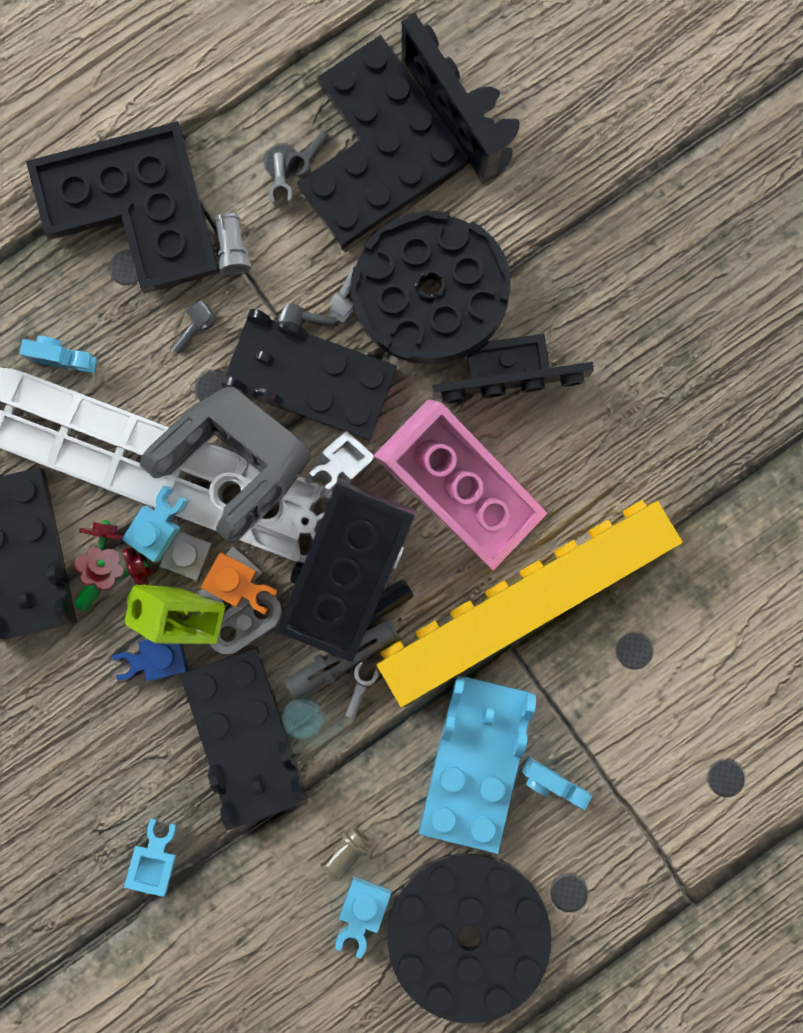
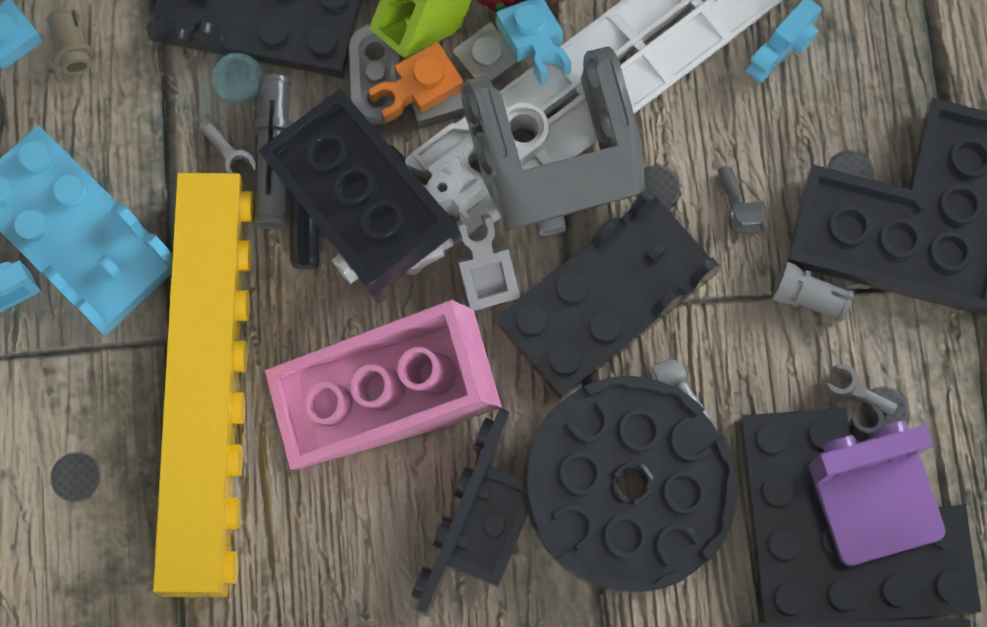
camera: 120 degrees right, 10 degrees down
(295, 313) = (689, 315): dark grey hand -> none
(347, 126) = (877, 493): none -> medium lavender bracket

